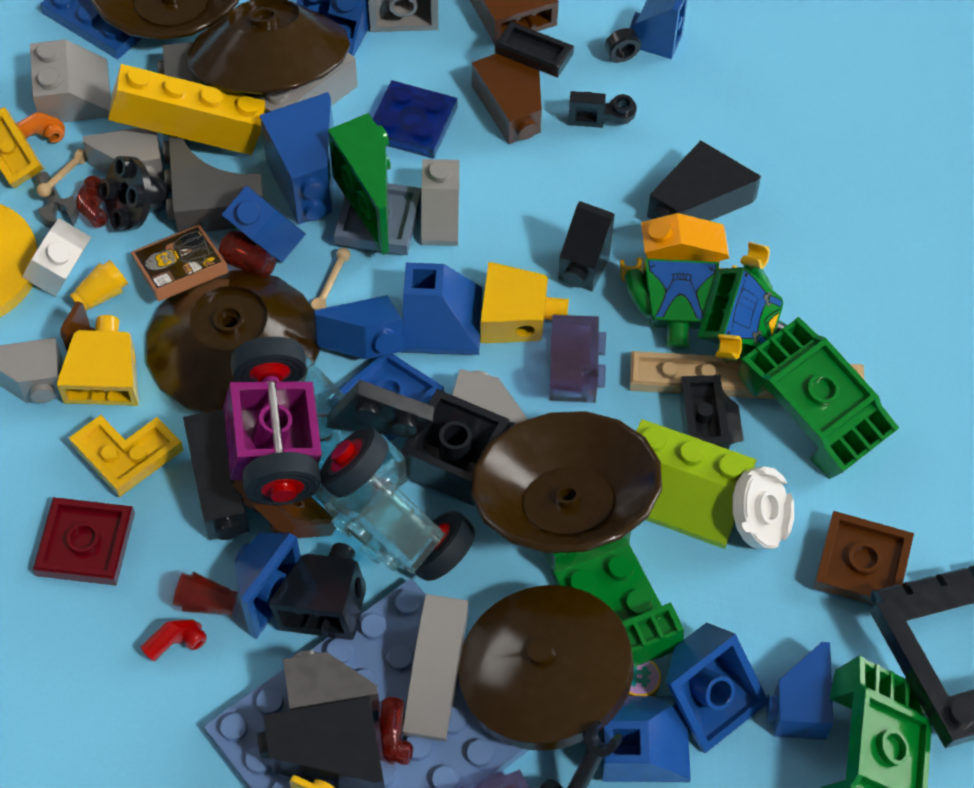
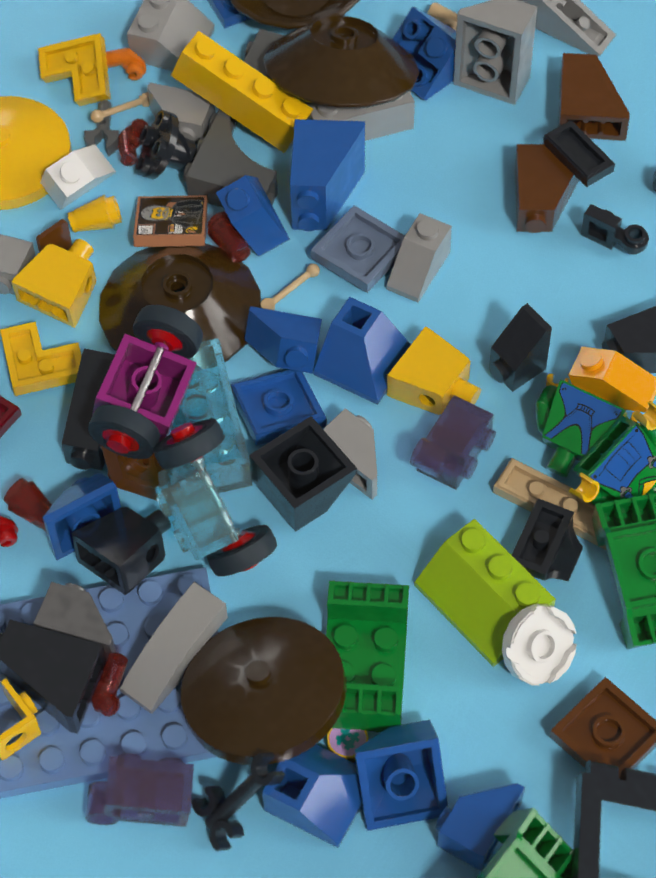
camera: 30 degrees right, 0 degrees up
(361, 173) = (361, 206): green slope -> none
(381, 410) = (244, 413): black wing -> none
(415, 118) = (442, 175): clear blue plate -> none
(566, 482) = (366, 541): dark brown dish -> none

